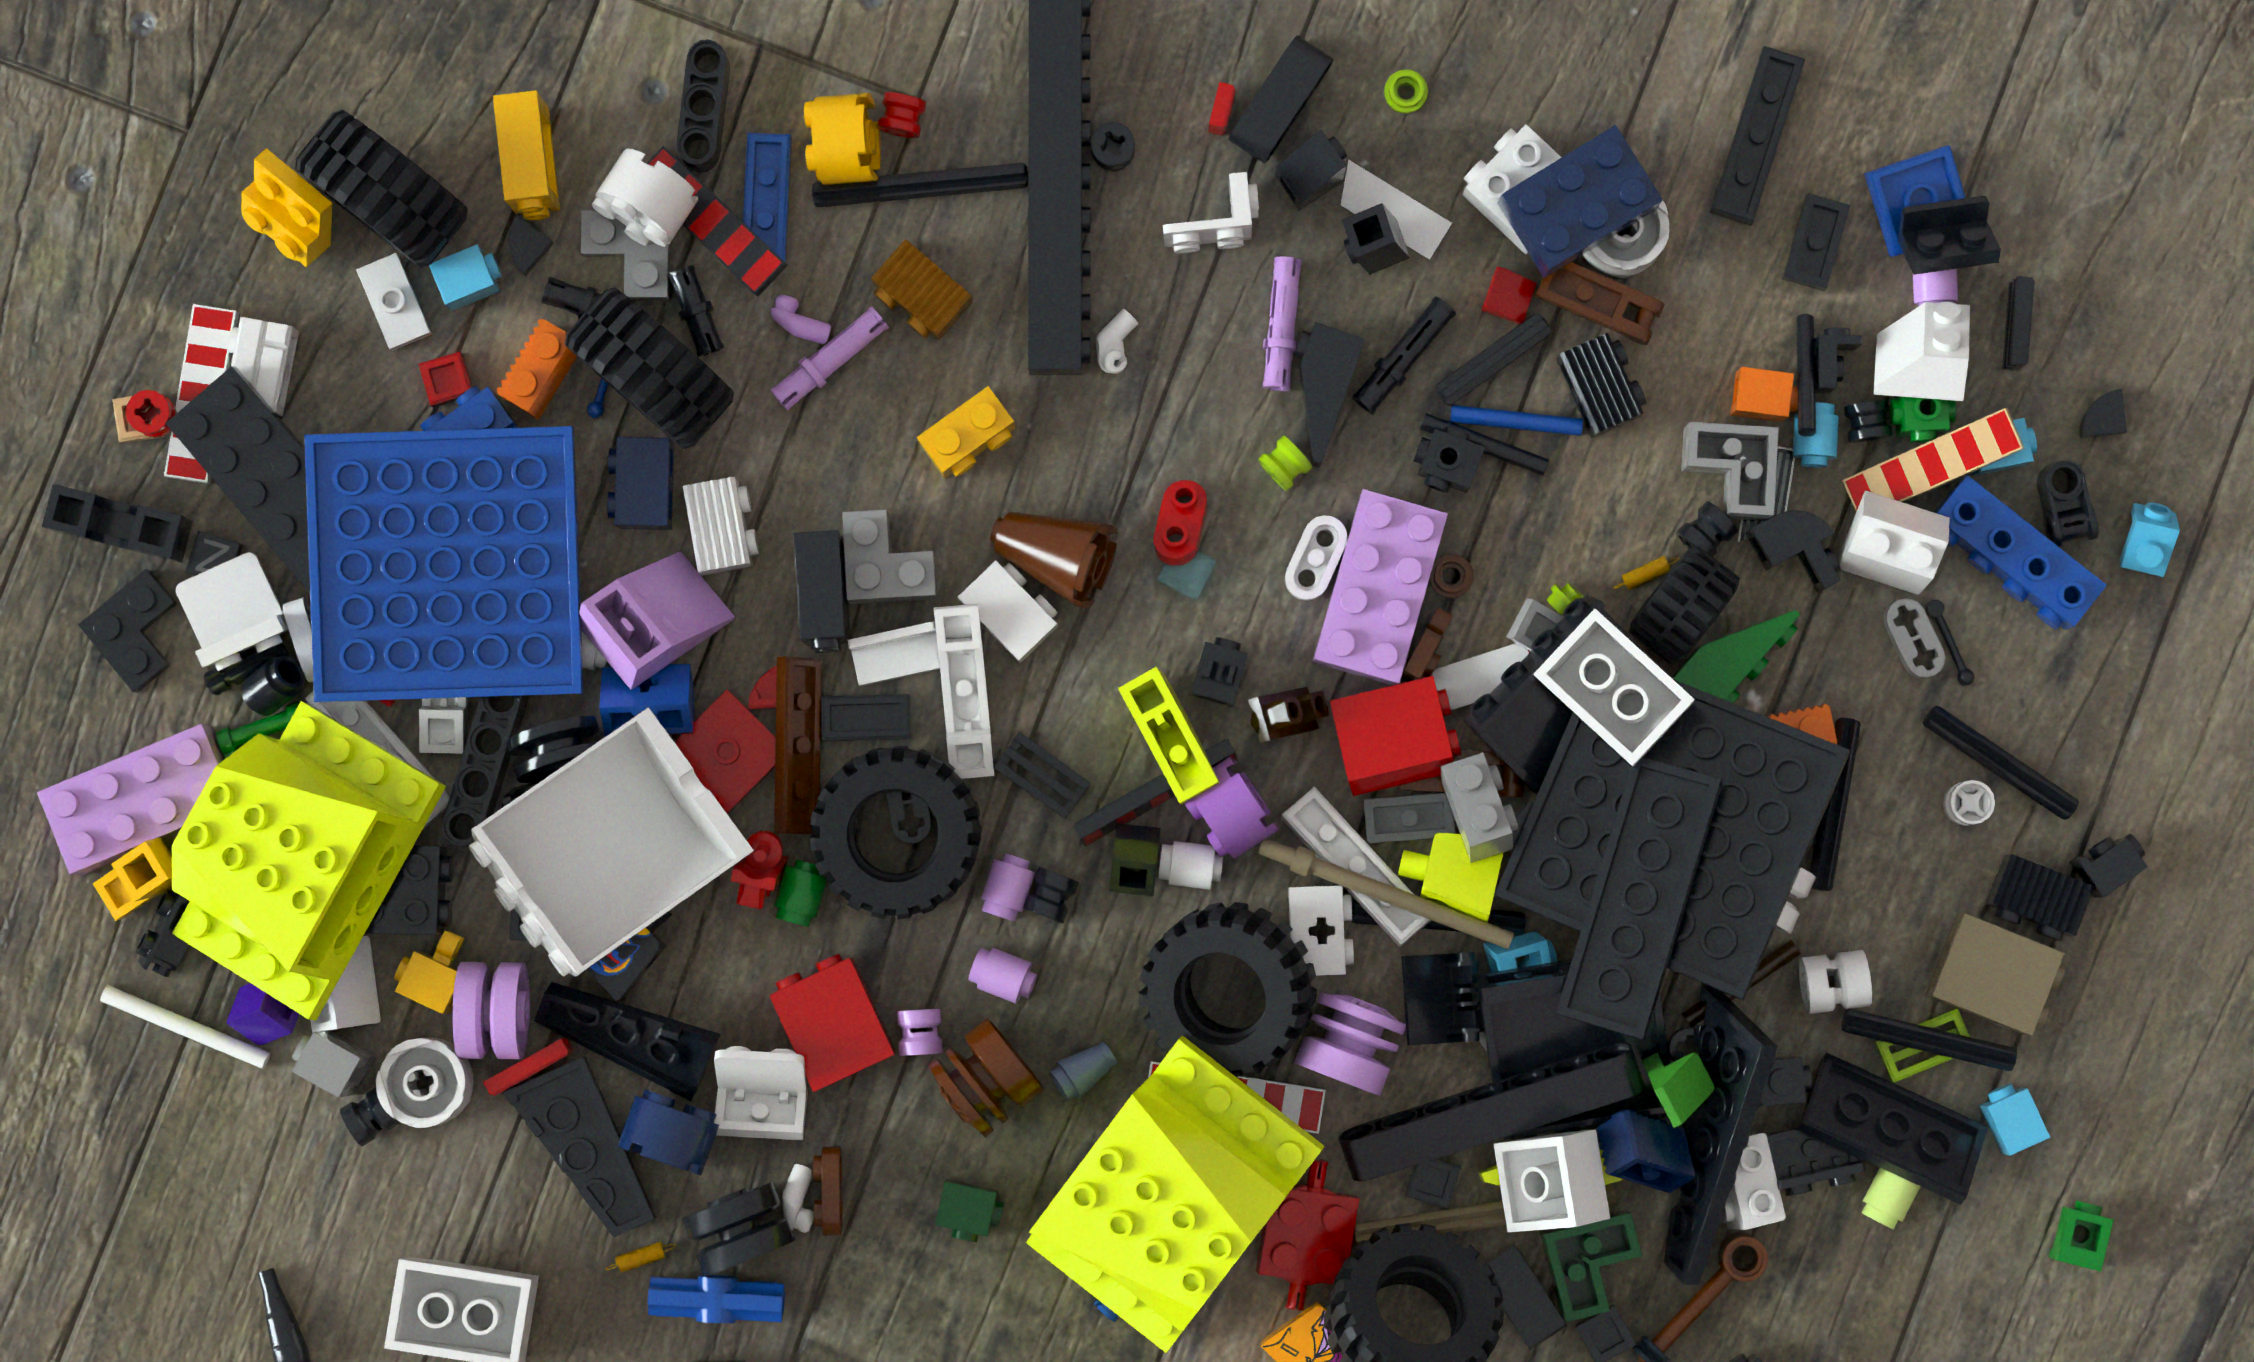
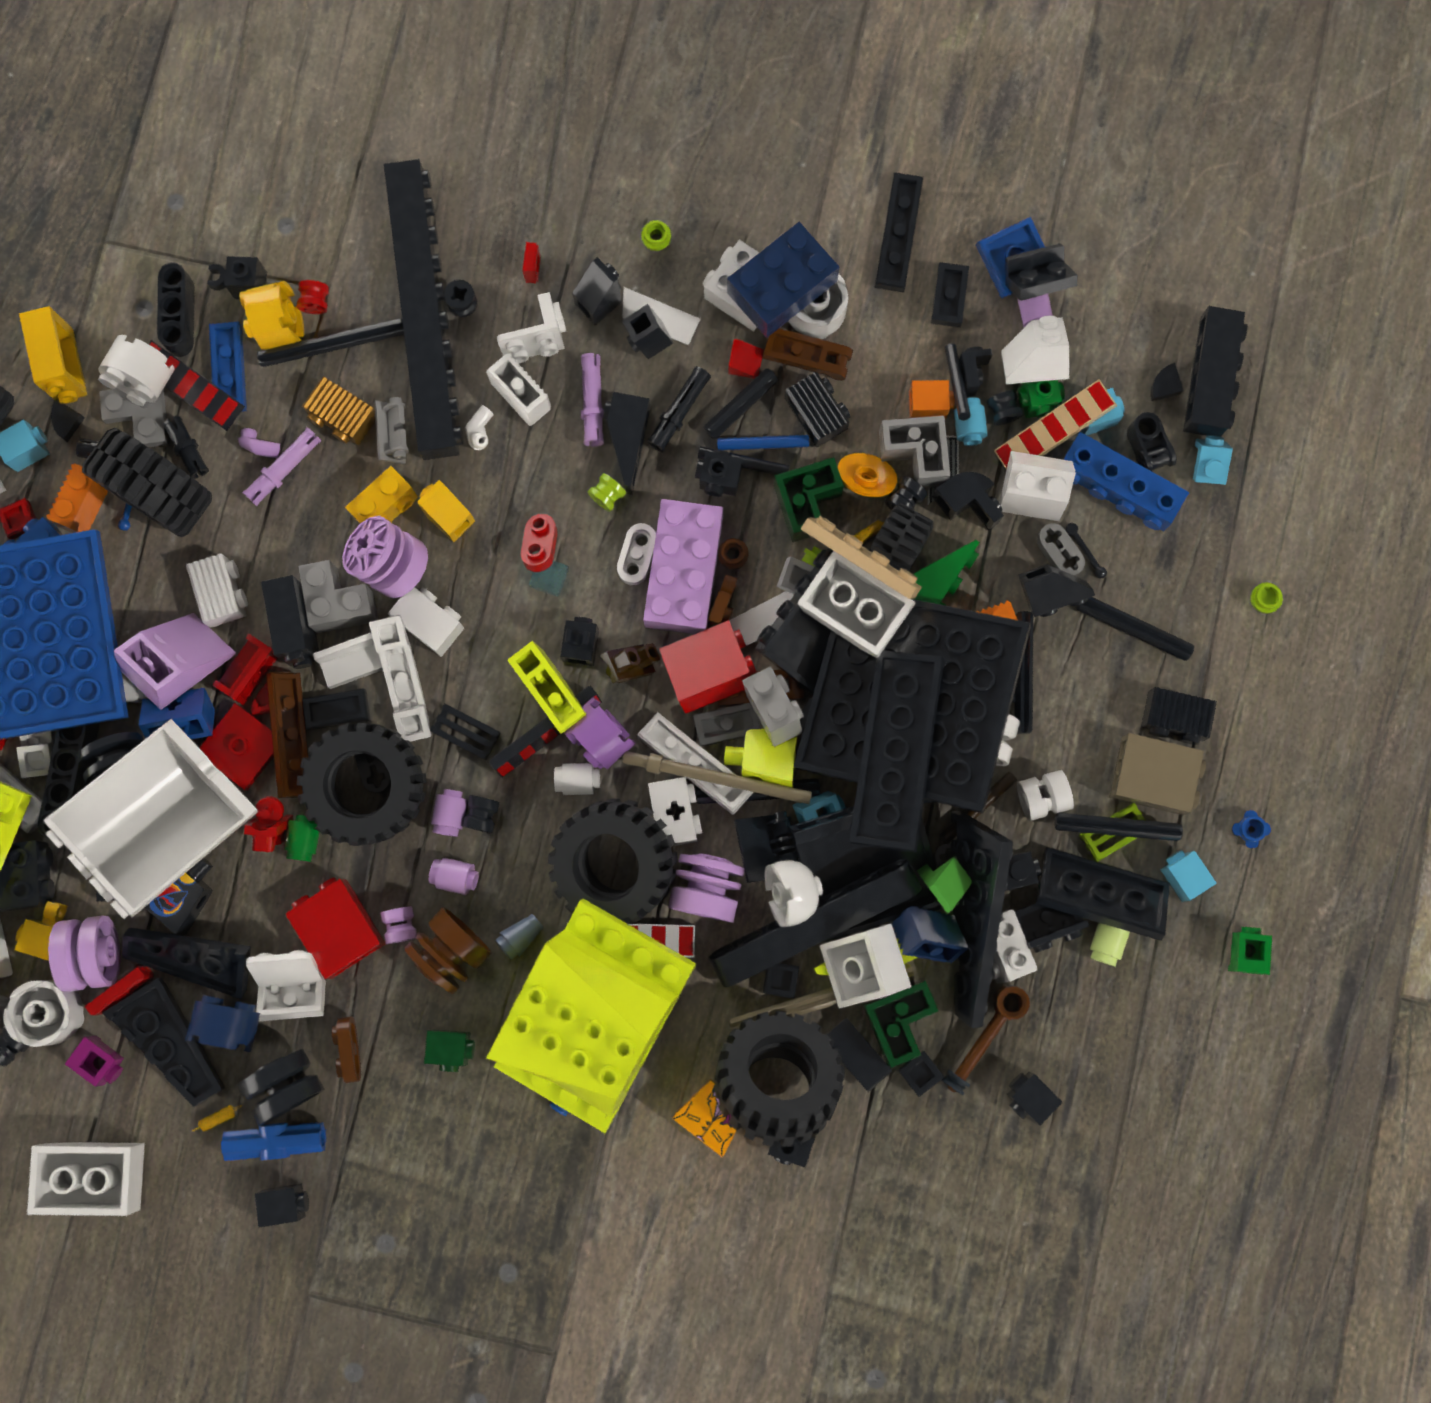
camera: 10 degrees left, 5 degrees down
(471, 1156) = (85, 1061): none -> magenta brick
(642, 483) = (160, 568): dark blue brick -> none
(747, 643) = (246, 670): none -> red hinge
(793, 1199) = (321, 1060): white arm -> none
(804, 73) = (239, 275): none -> black brick
(965, 518) = (385, 557): none -> lavender wheel
(988, 339) = (390, 431): none -> light grey hinge
(1055, 460) = (445, 510): none -> yellow slope
(1058, 552) = (462, 575): reddish brown cone -> none
(1134, 859) = (536, 780): black brick -> none
(1181, 297) = (519, 389): none -> white brick
(1281, 99) = (571, 251): black beam -> none
(1308, 1236) = (695, 1031): red plate -> none
(1469, 1067) = (793, 892): none -> white cylinder
(1558, 504) = (803, 489): none -> dark green brick
(1625, 617) = (871, 562): none -> tan wing
(1657, 491) = (867, 475): none -> light orange dish
(1894, 694) = (1052, 588): none -> black slope
(1974, 798) = (1123, 653): white wheel -> none
(2018, 323) = (1097, 328): black tile -> none
(2110, 864) = (1224, 685): black brick -> none
(2126, 1070) = (1260, 827): none -> blue plate
(2175, 413) = (1215, 371): none -> black brick
(2192, 747) = (1266, 598): none -> lime plate

